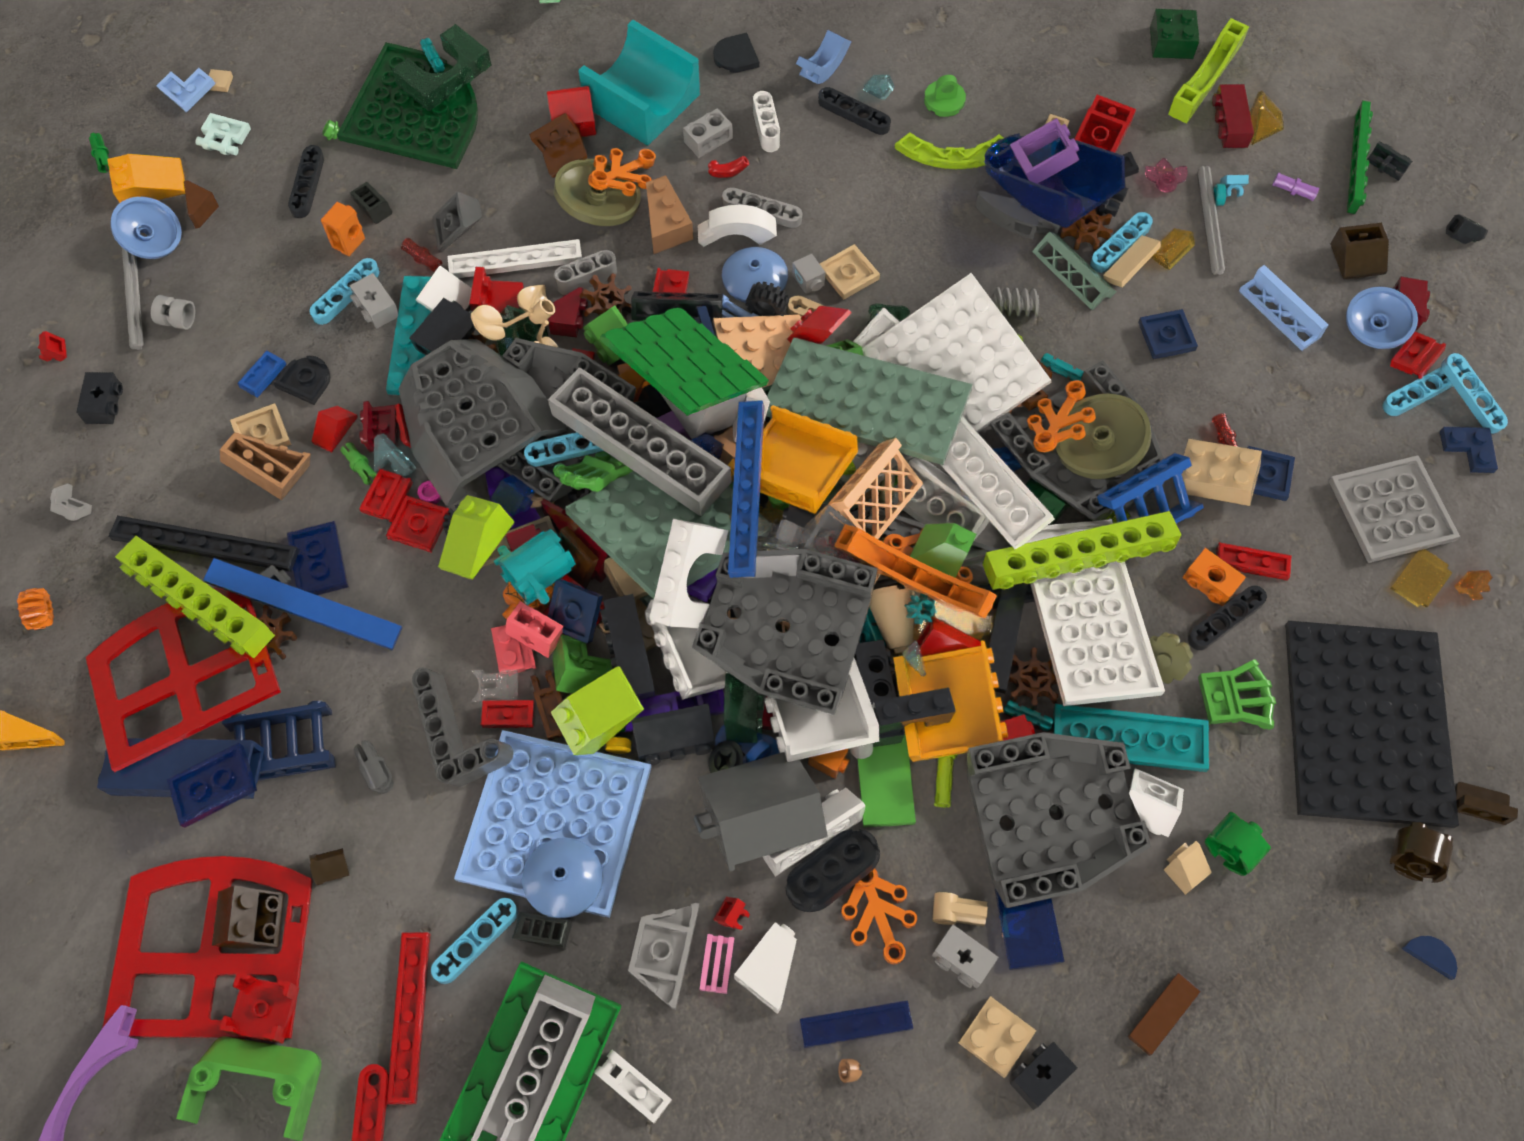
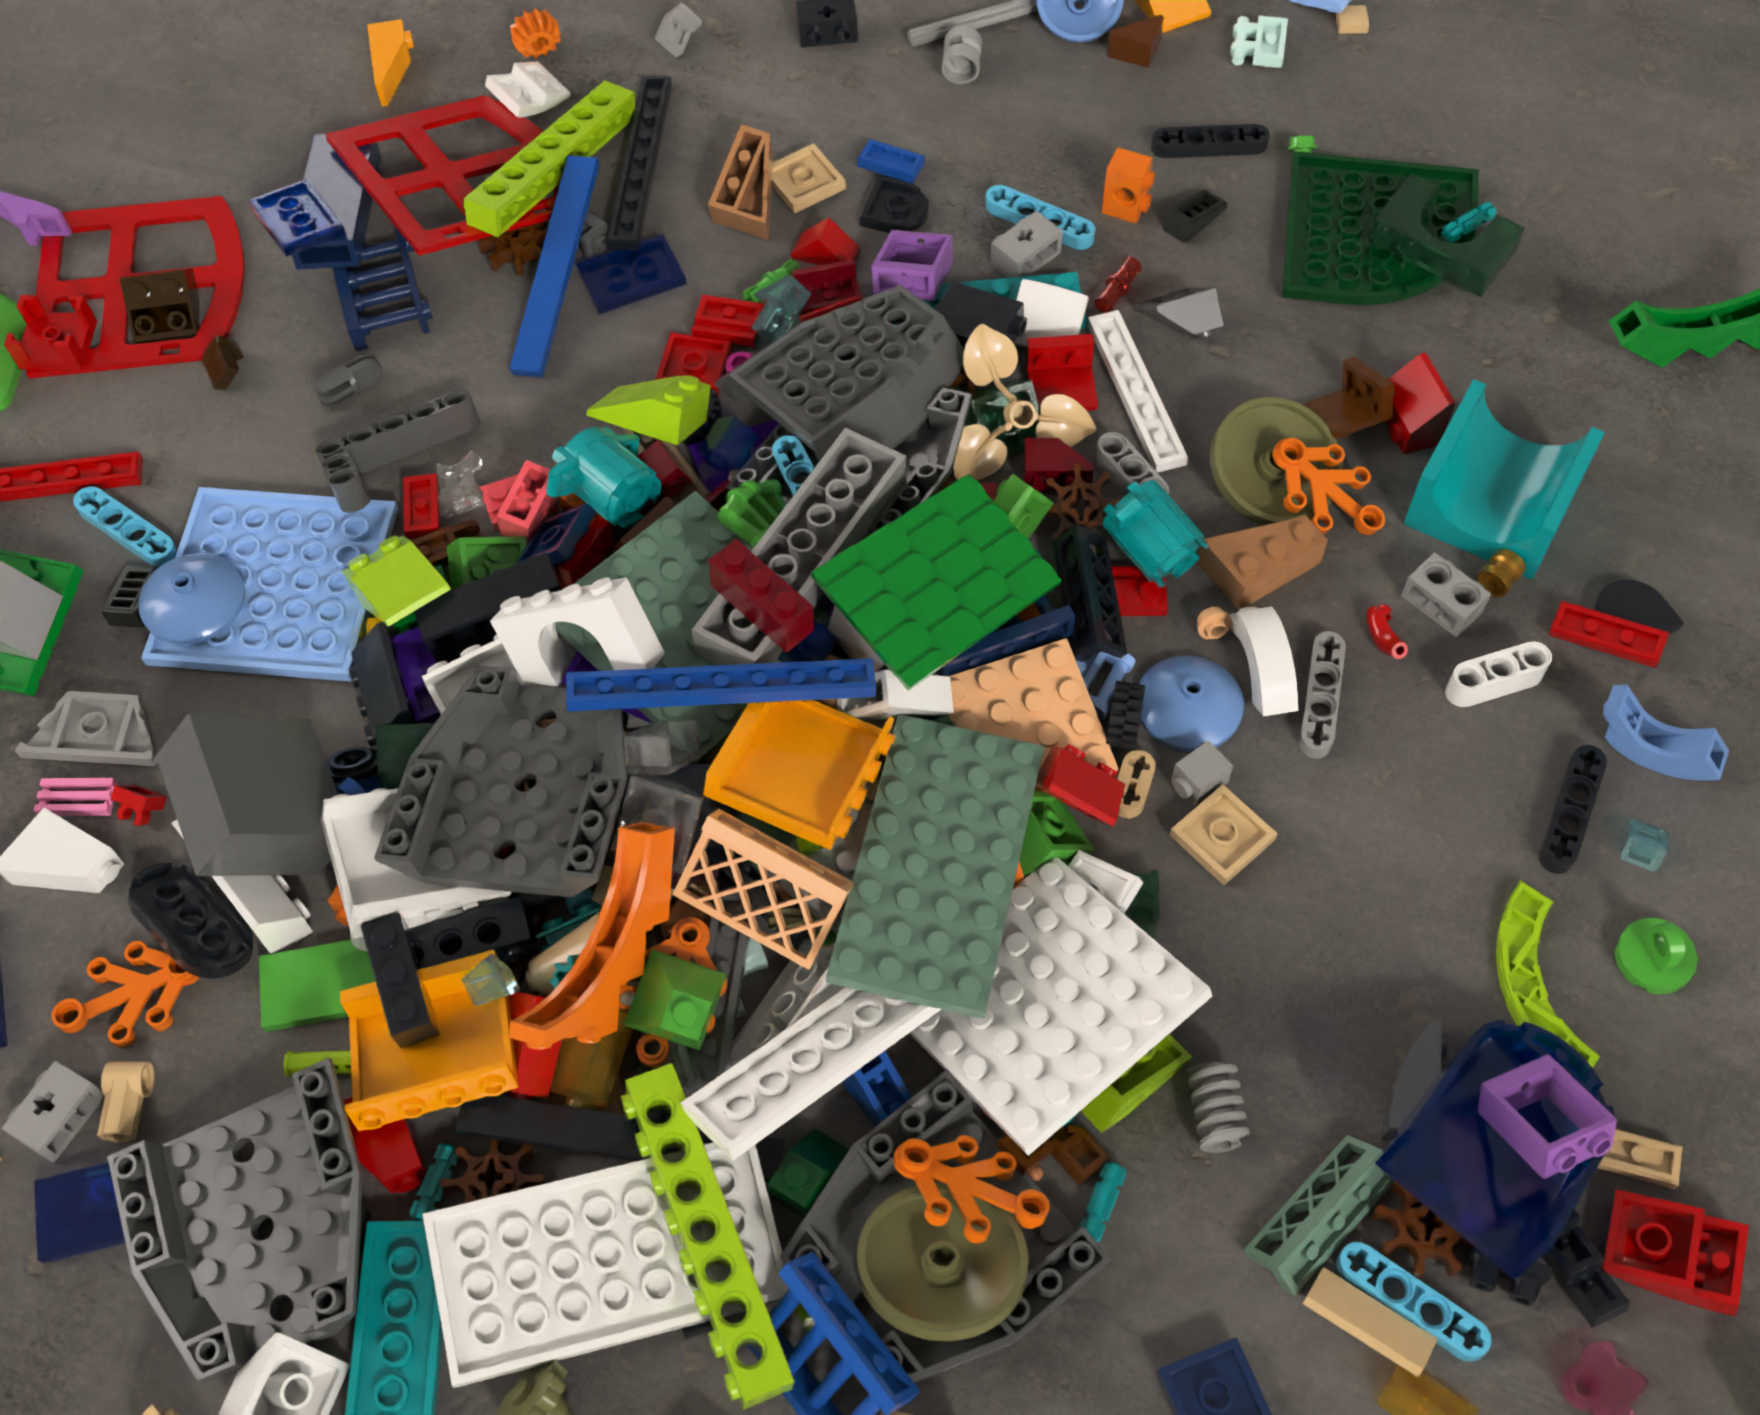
camera: 85 degrees right, 5 degrees down
(90, 624) = (527, 89): none -> white slope
(392, 373) = (913, 264): none -> medium lavender window
(645, 258) = (1154, 531): none -> teal container
(688, 452) = (761, 595): none -> dark red brick
(695, 102) = (1501, 571): none -> pearl gold wheel
(705, 249) = (1213, 623): none -> light nougat plate
(749, 66) = (1609, 634): none -> red tile

